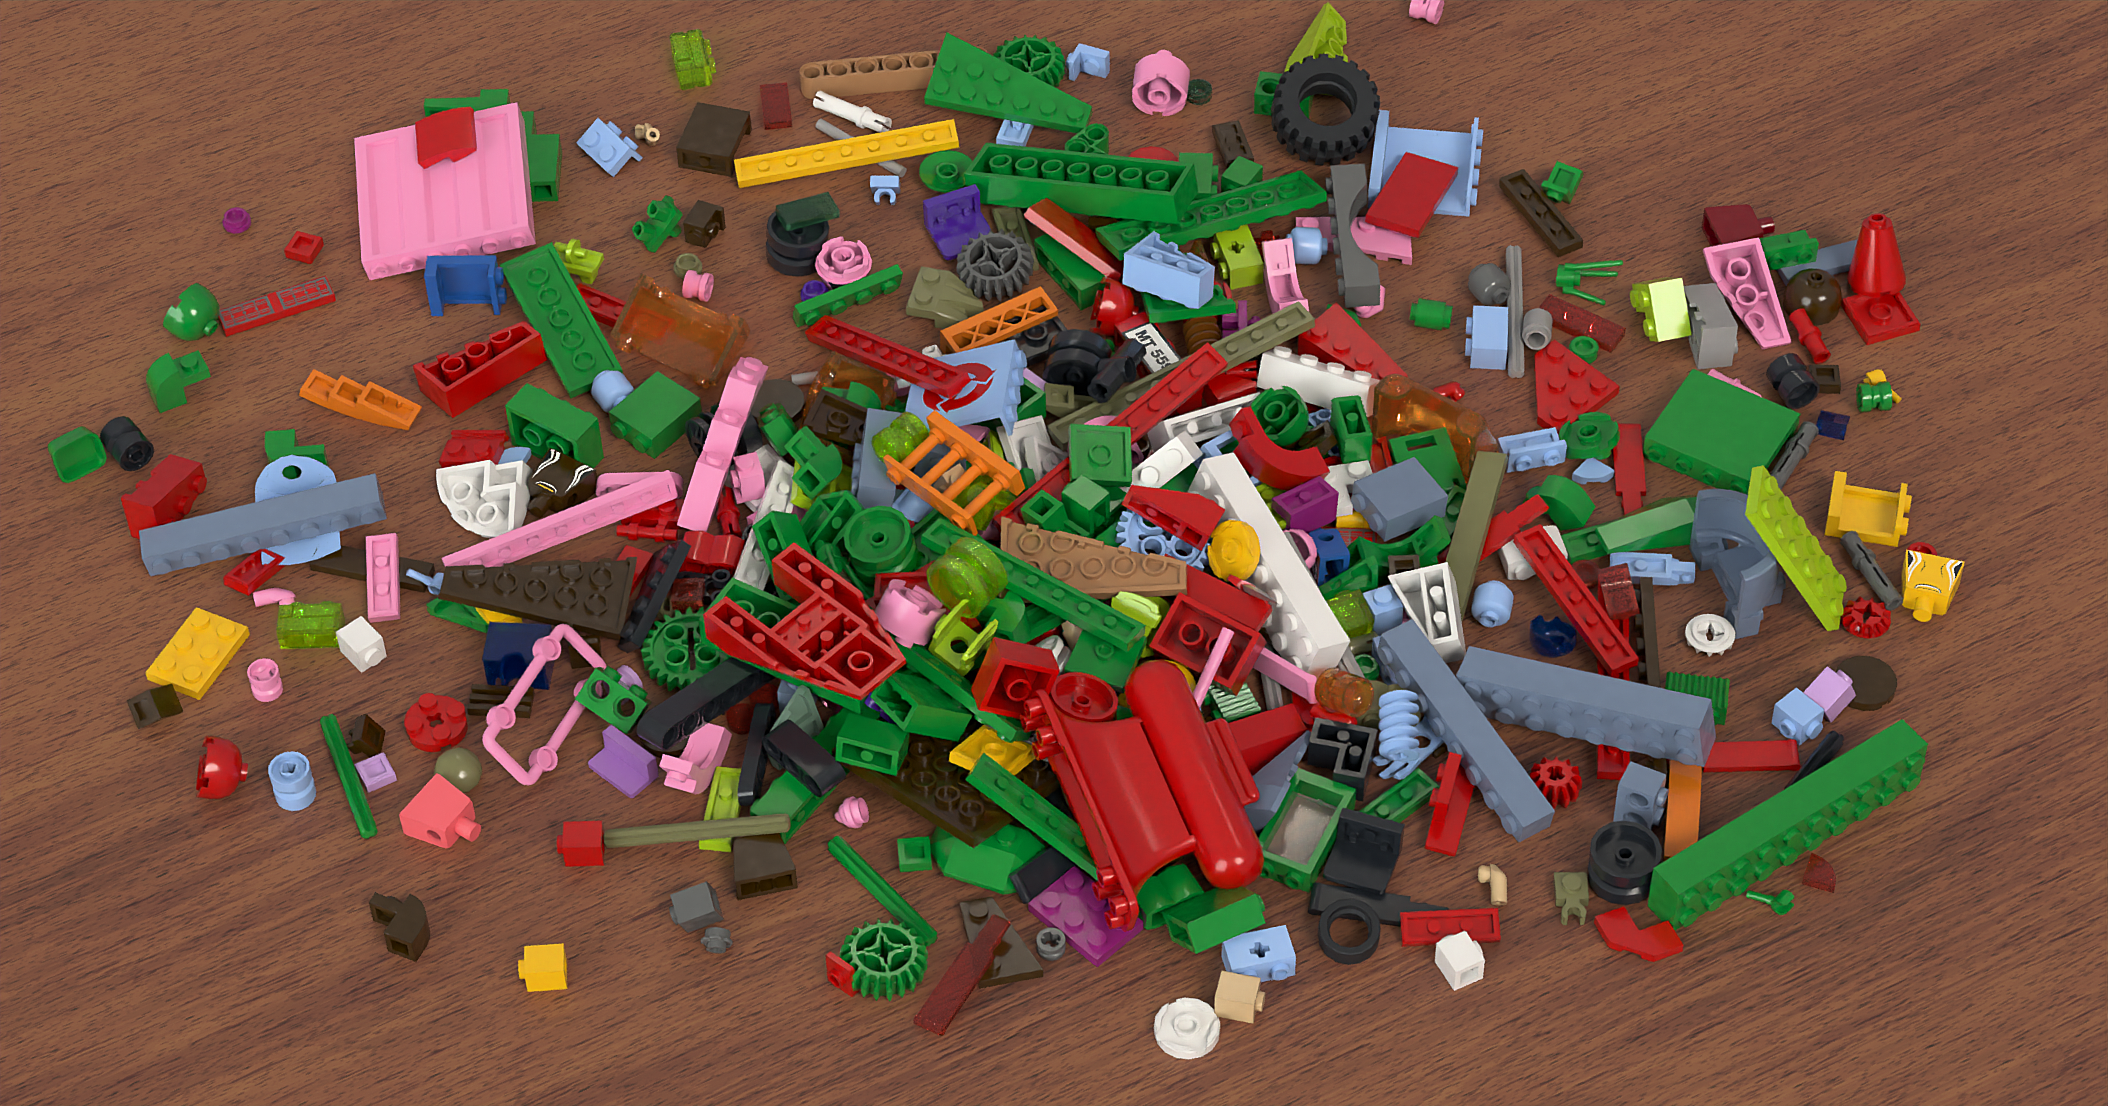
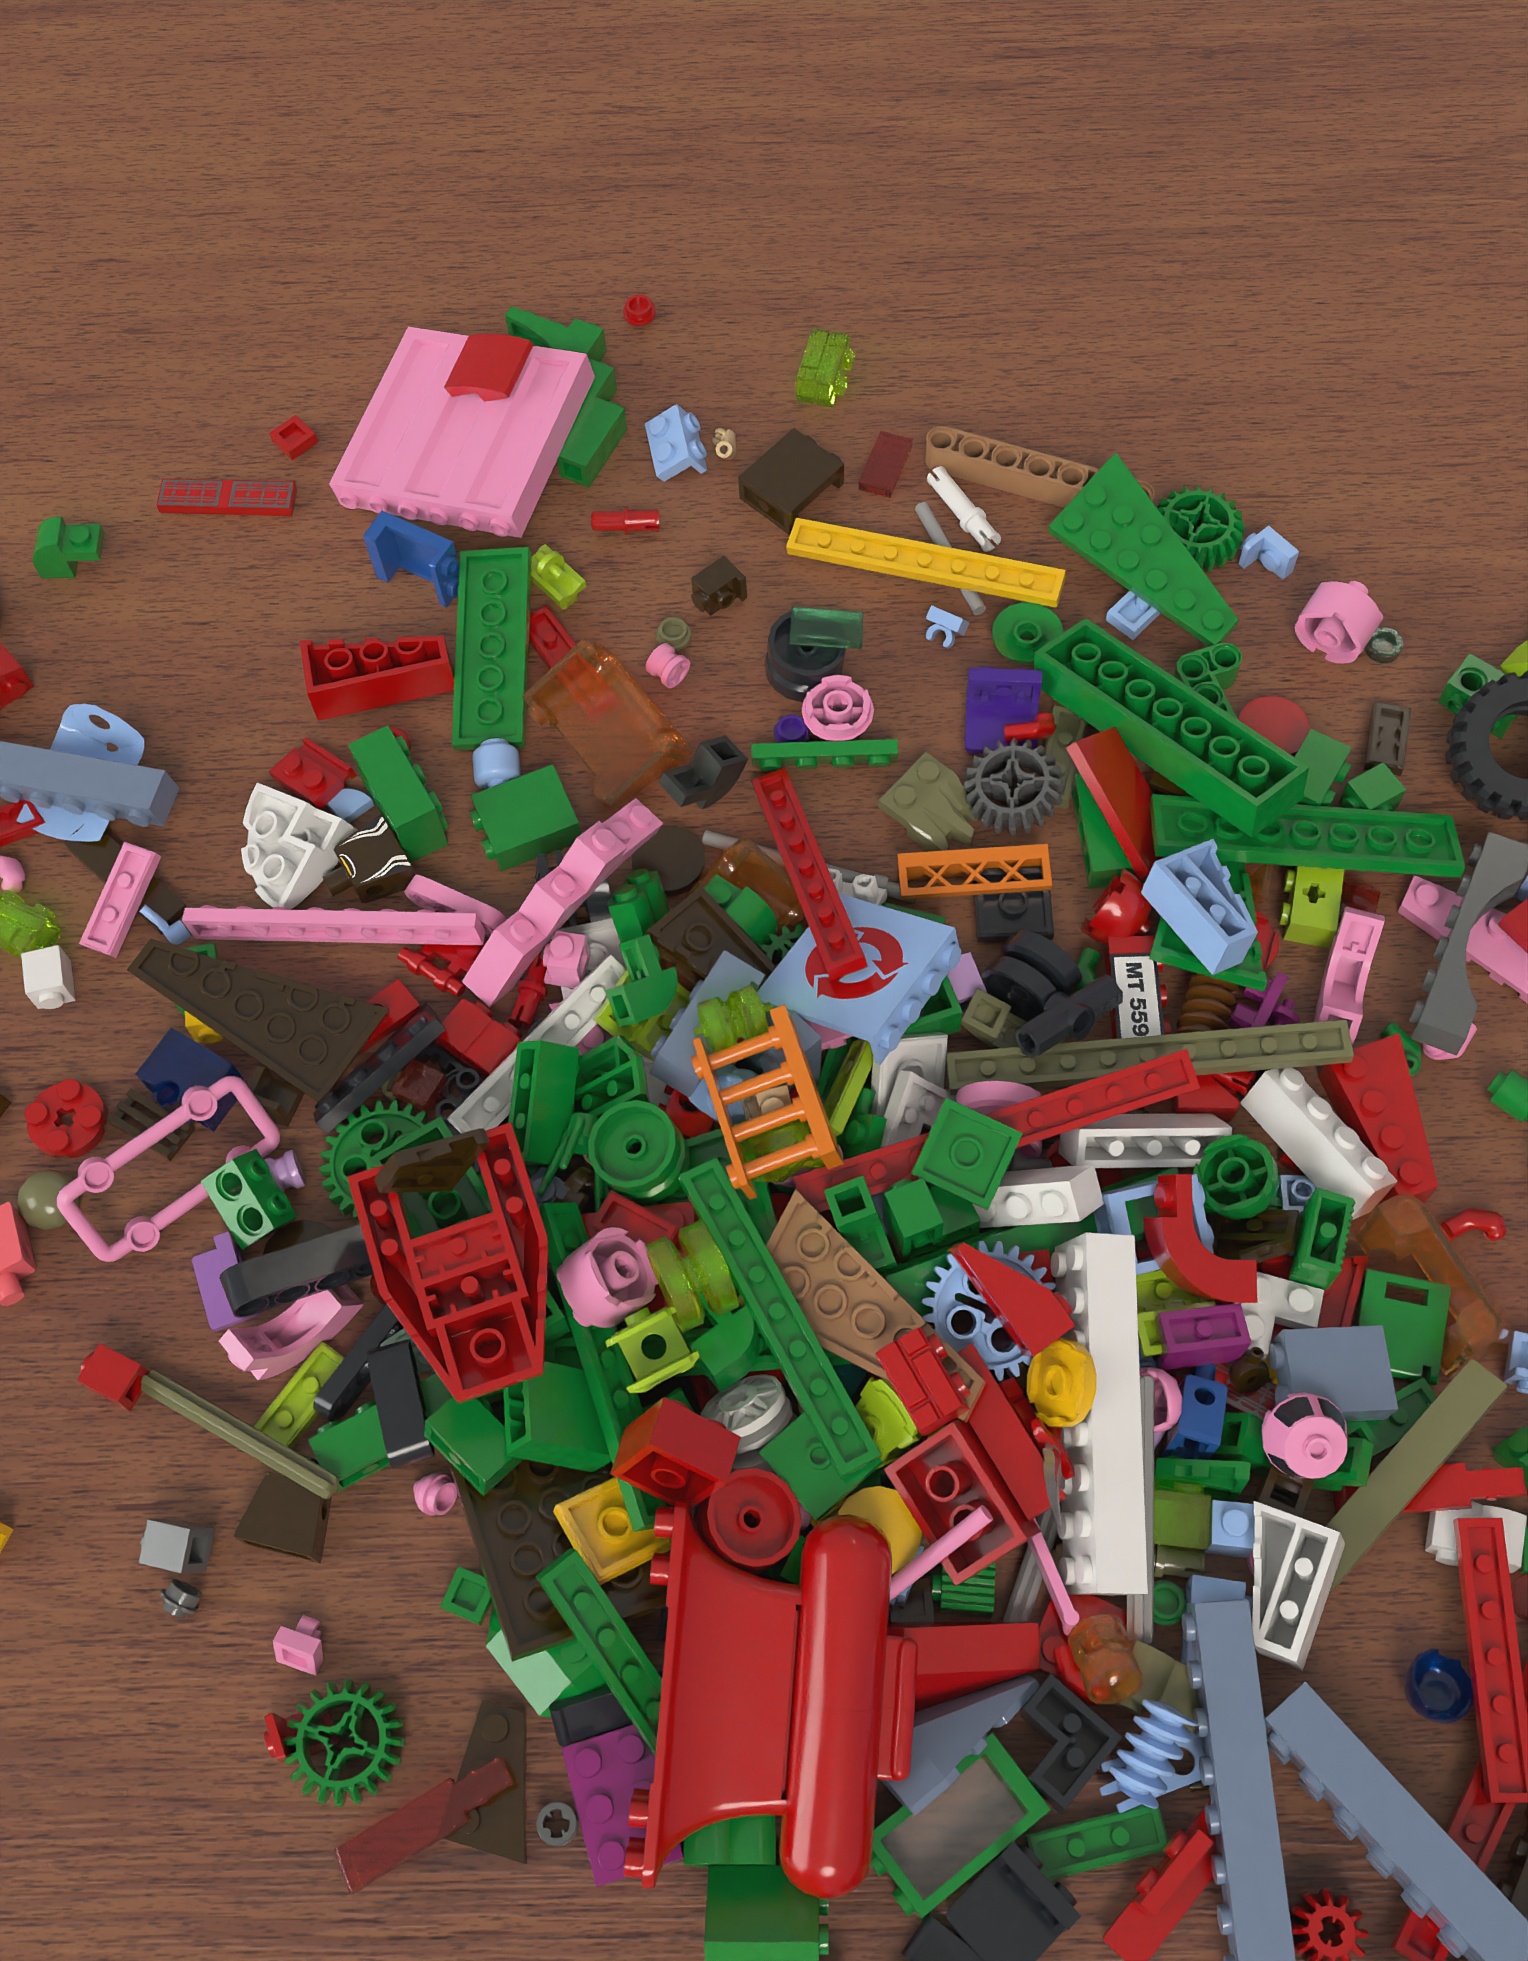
camera: 30 degrees right, 15 degrees up
(194, 315) = (130, 474): green cylinder -> none
(236, 220) = (249, 375): magenta plate -> none
(285, 443) = (120, 690): green brick -> none
(361, 402) = (236, 655): orange slope -> none
(521, 71) = (639, 310): none -> red plate
(604, 208) = (626, 520): none -> red axle
(661, 223) = (669, 568): green hips -> none
(759, 582) = (433, 1165): none -> dark brown wing
(773, 336) = (708, 776): none -> pearl dark grey brick
(819, 927) = (300, 1647): none -> bright pink tile
(881, 889) = (406, 1630): green axle -> none
(992, 221) = (1040, 728): none -> red arm
(1148, 573) = (923, 1380): none -> red brick
(1308, 245) = (1406, 924): light blue head -> none
(1347, 521) = (1249, 1372): none -> dark brown piece
(1399, 527) = (1305, 1436): none -> bright pink cone
(1492, 602) = (1381, 1592): light blue head -> none

